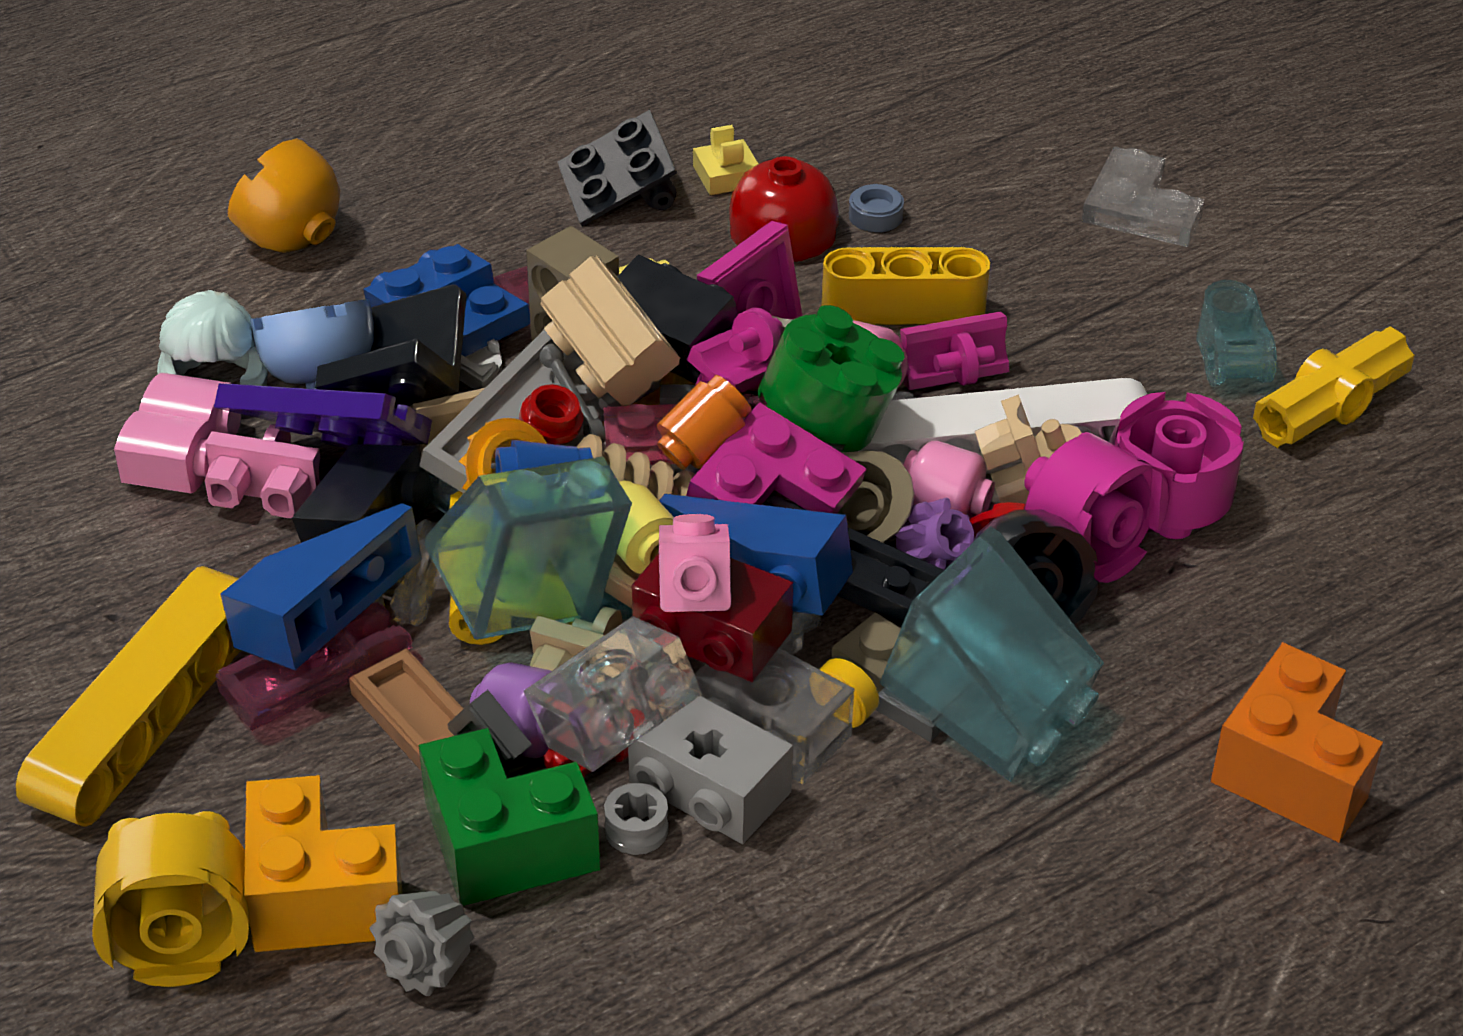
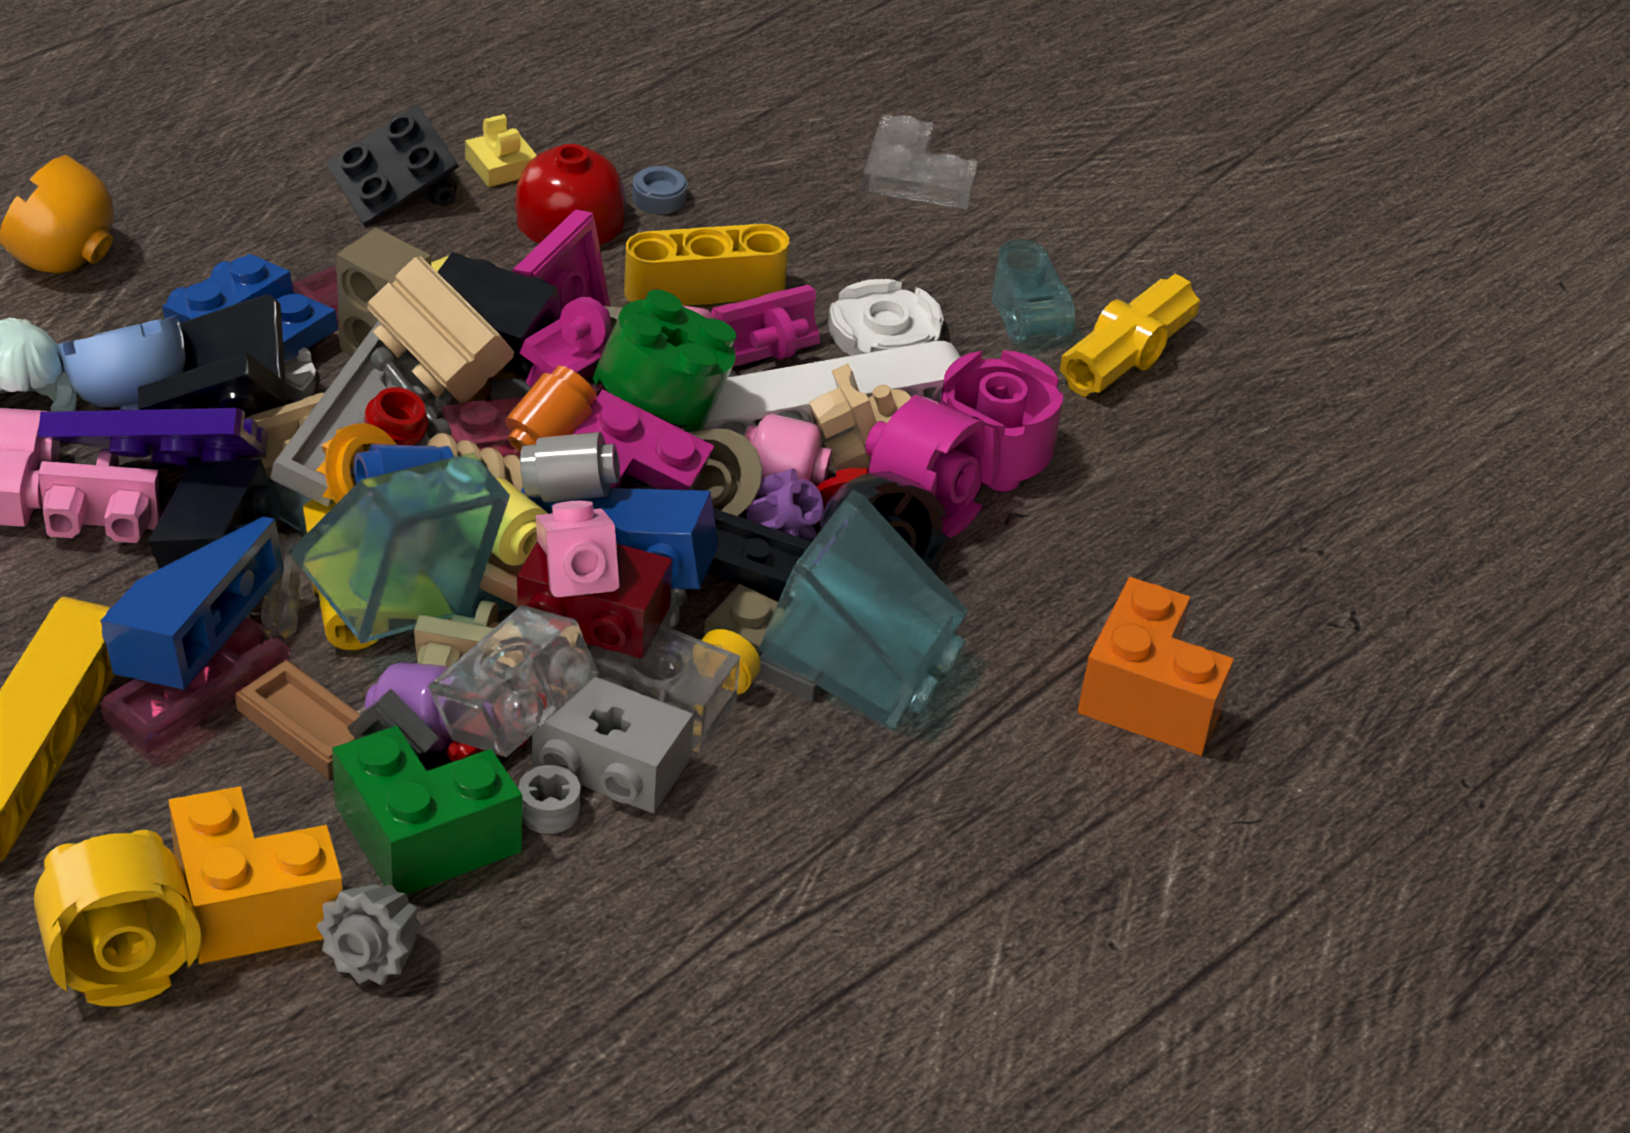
camera: 15 degrees left, 0 degrees up
(706, 479) = (569, 467): none -> light grey brick
(1097, 350) = (897, 317): none -> white tile

